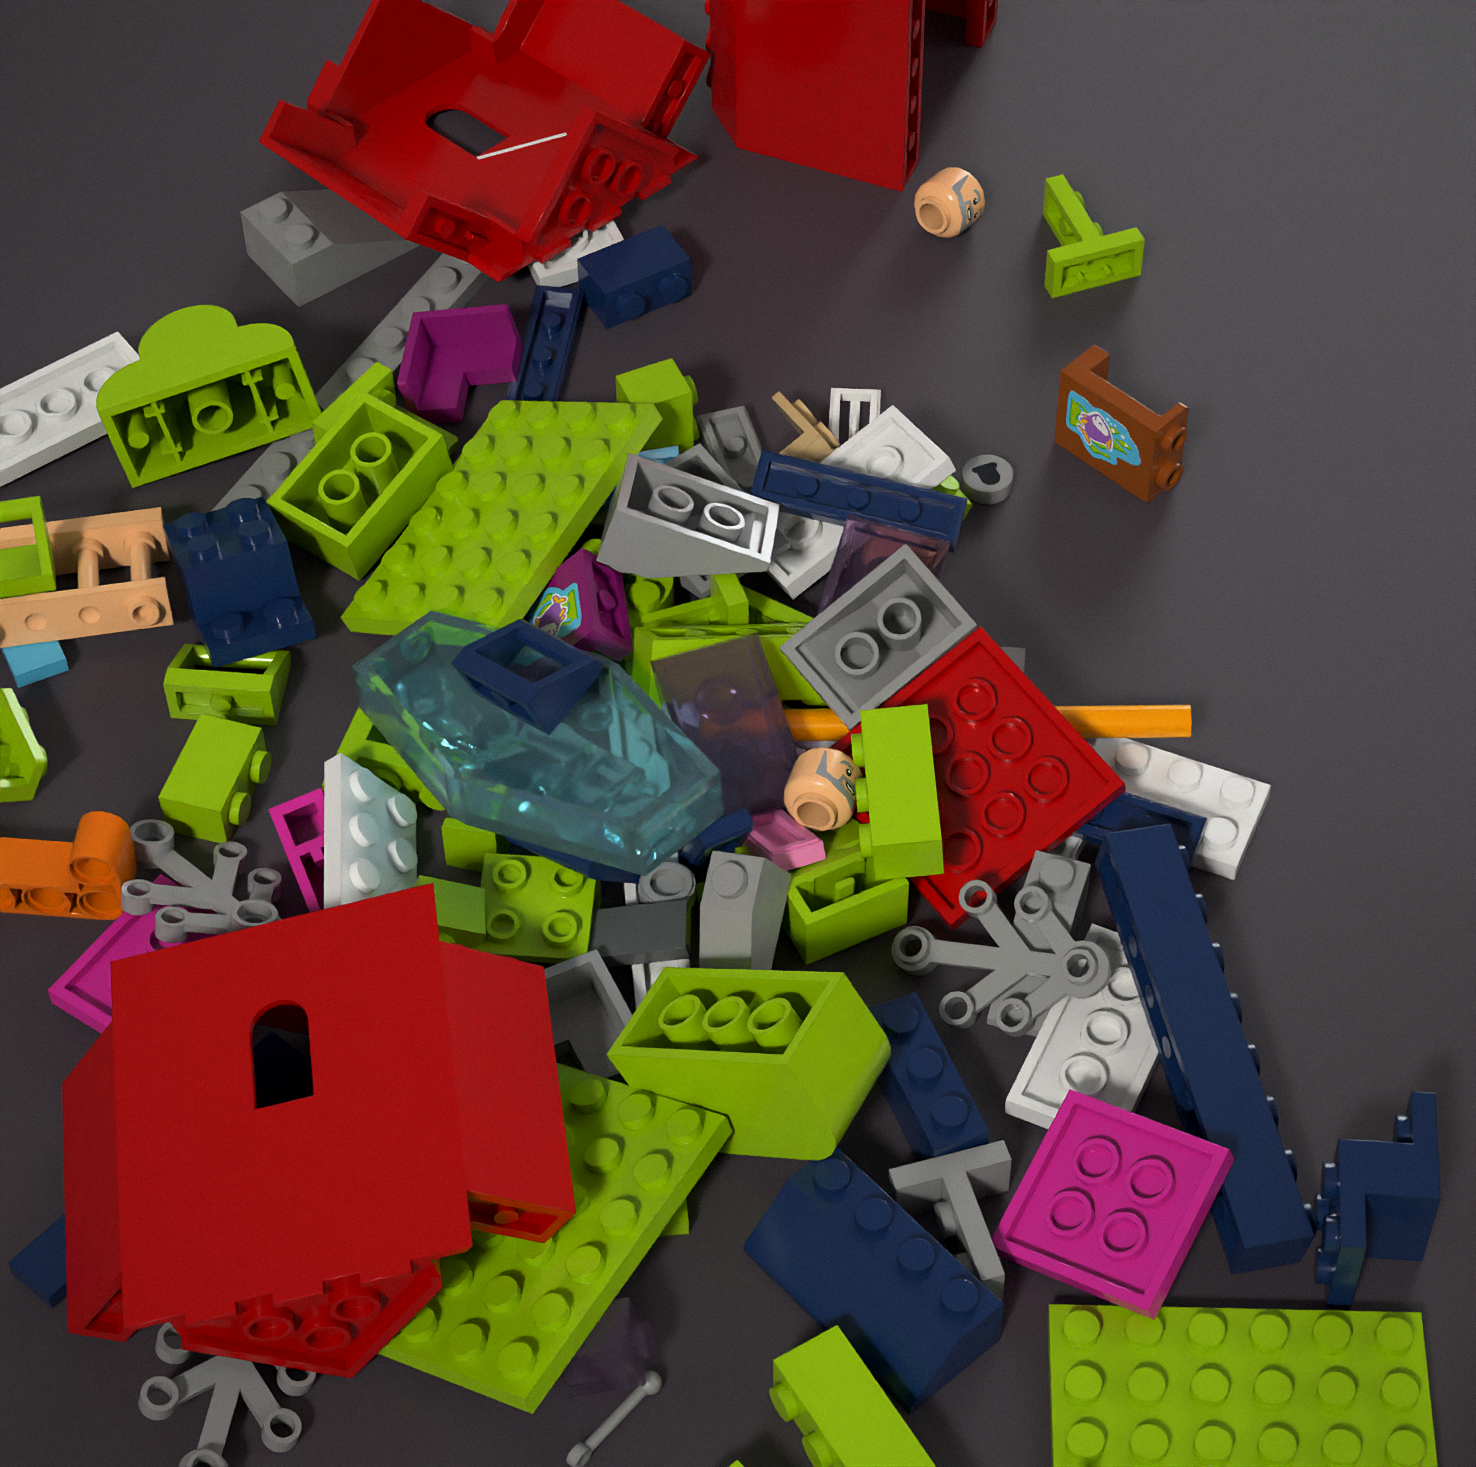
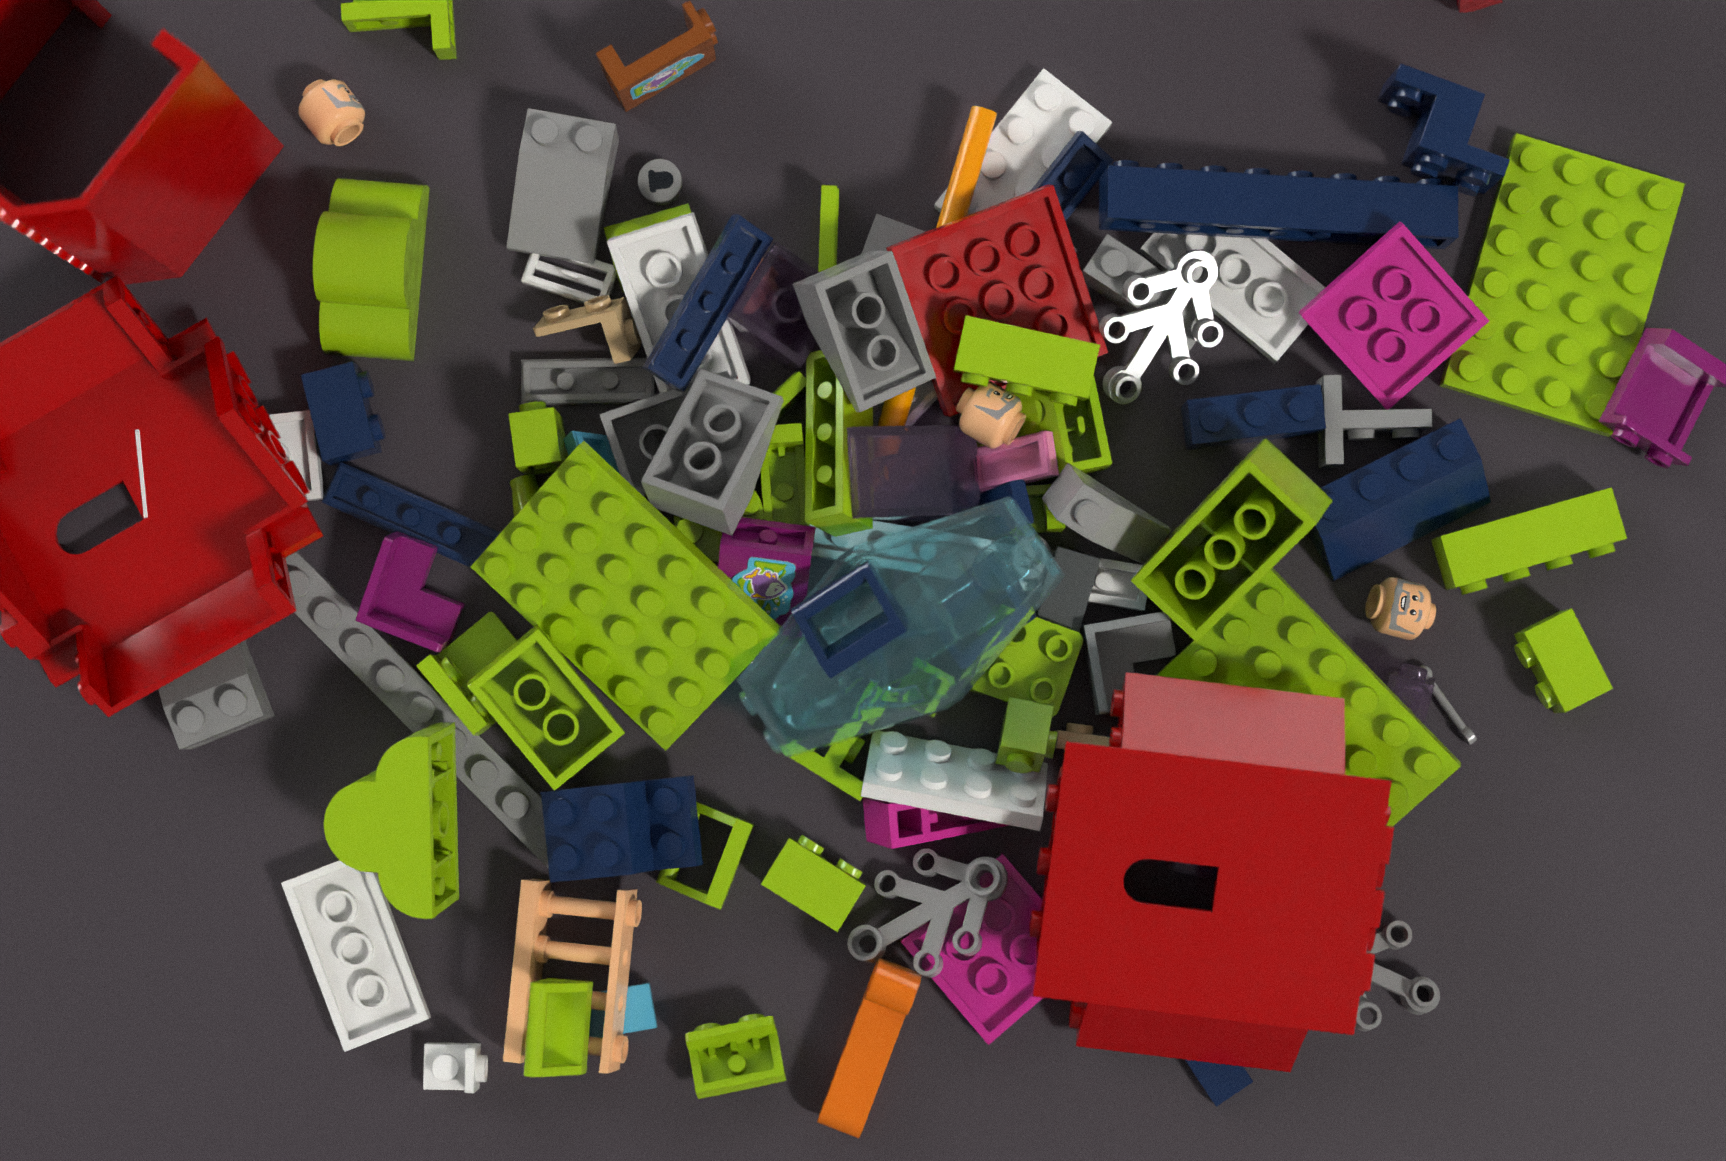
camera: 80 degrees left, 35 degrees up
(727, 1317) = (1400, 608): none -> light nougat head
(796, 256) = (370, 268): none -> lime brick
(955, 387) = (562, 186): none -> light grey slope
(1010, 619) = (828, 227): none -> lime tile

